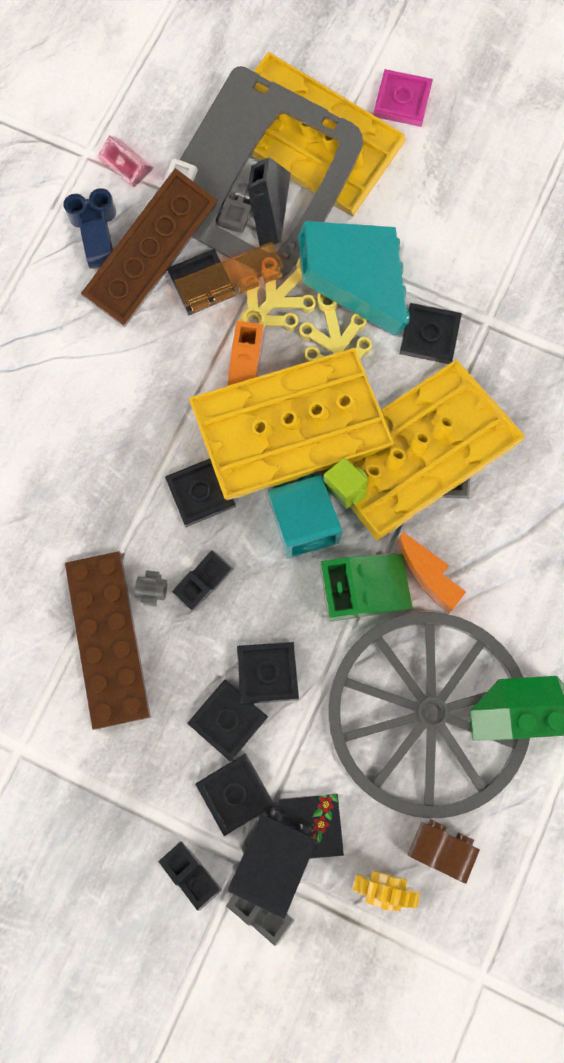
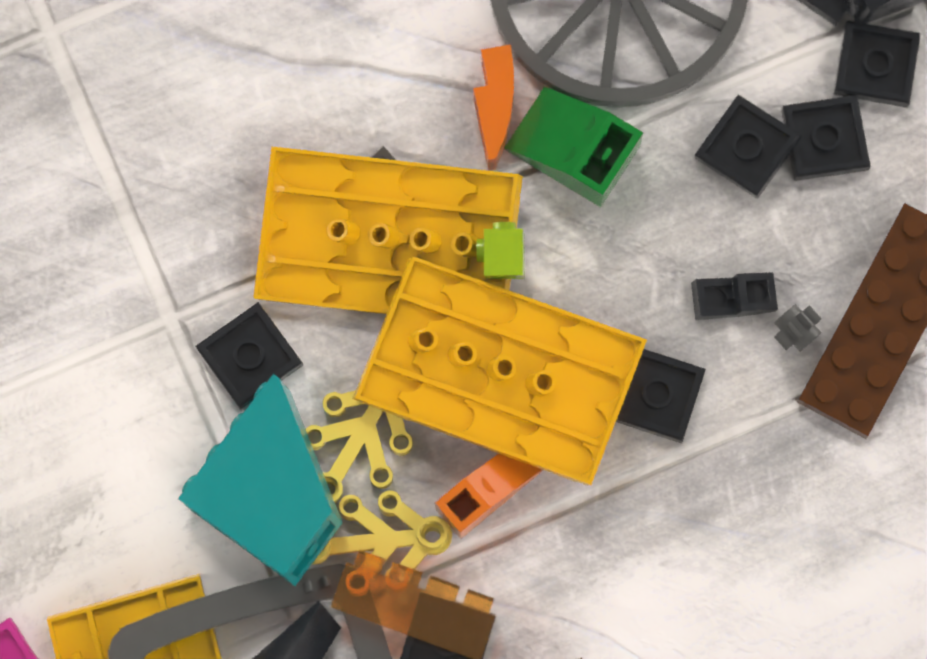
camera: 140 degrees left, 0 degrees up
(304, 516) = (575, 259): teal slope -> none

